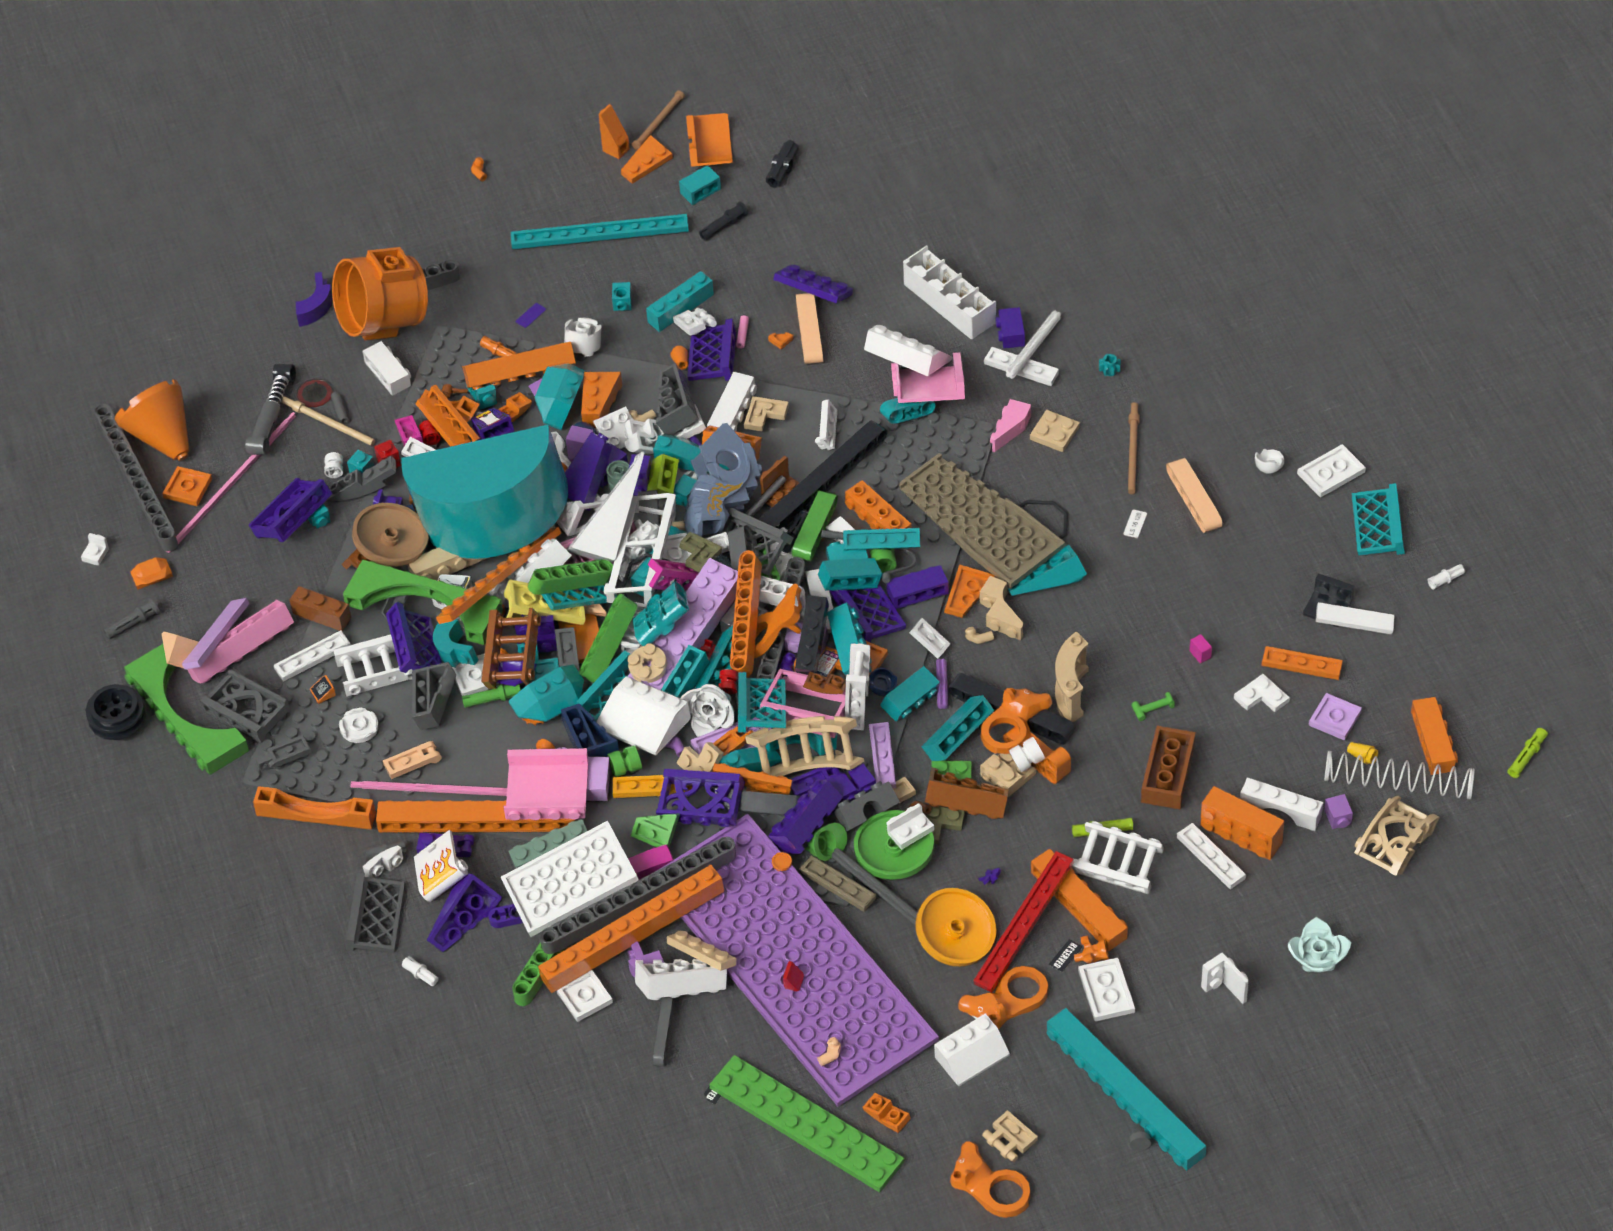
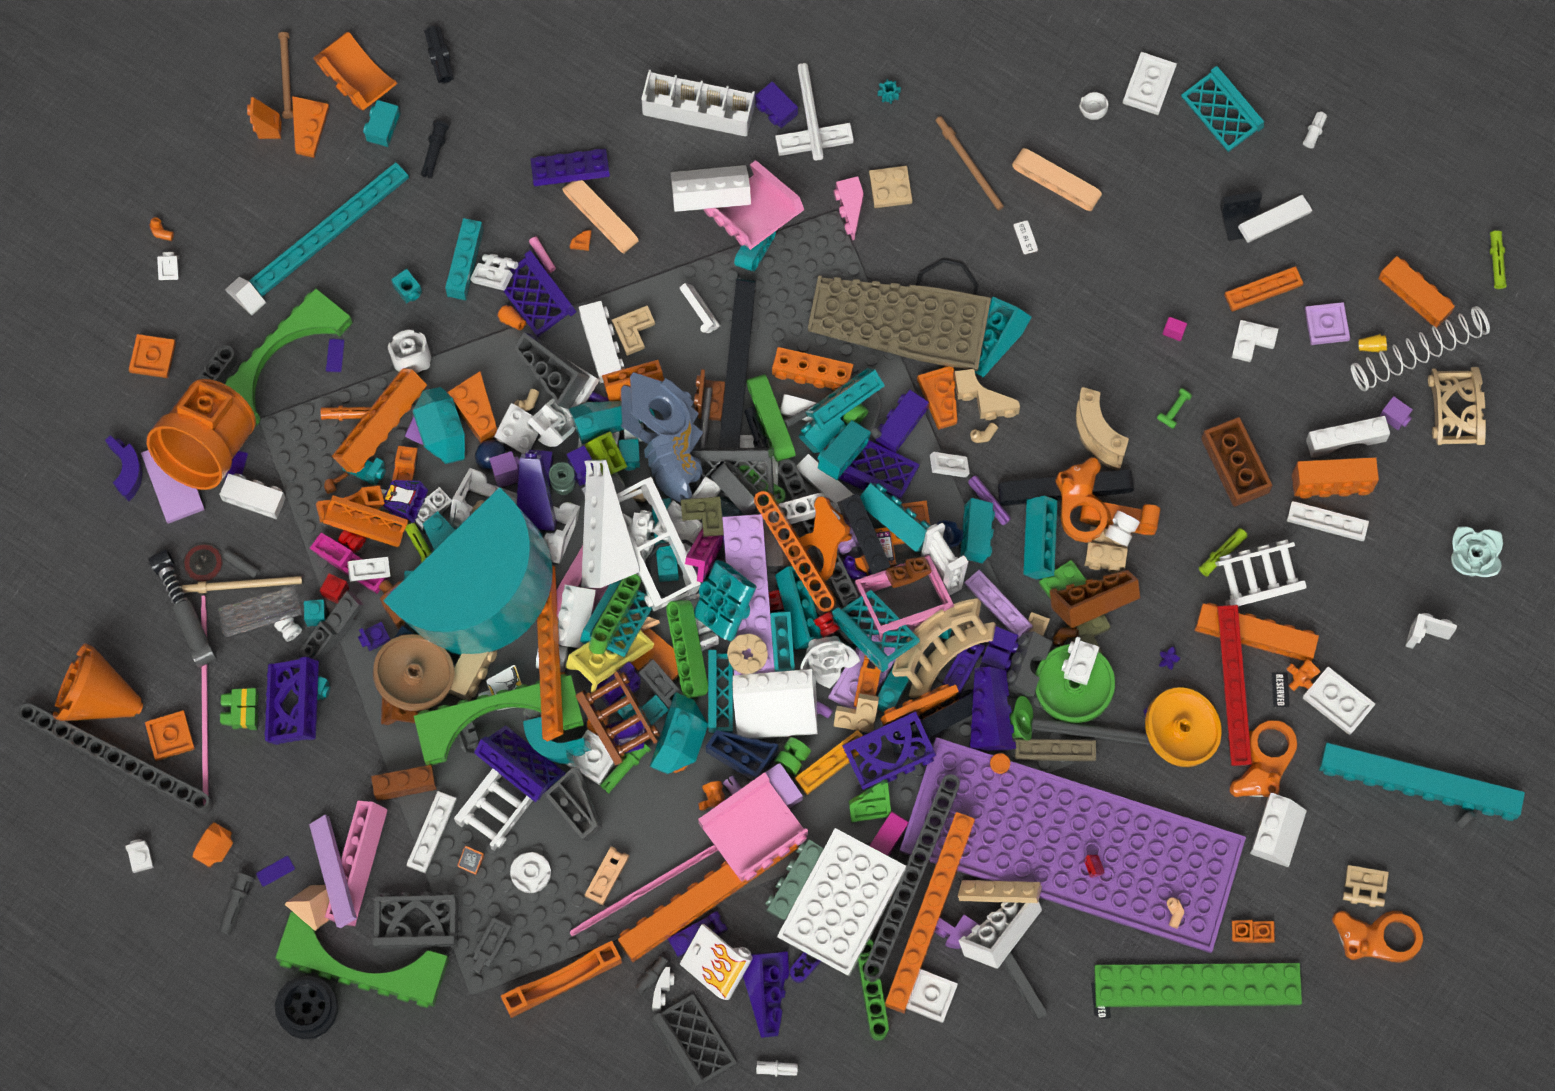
camera: 40 degrees left, 20 degrees up
(180, 618) = (275, 871): none -> dark purple sticker
(253, 497) = (243, 708): none -> bright green hips
(322, 441) = (259, 611): none -> clear plate
(333, 340) = (174, 497): none -> lavender tile
(398, 344) = (238, 463): none -> dark purple sticker
(400, 237) = (152, 356): none -> orange plate
(462, 193) = (168, 266): none -> white bracket
(501, 243) = (245, 295): none -> white slope
(533, 279) = (312, 317): none -> bright green arch

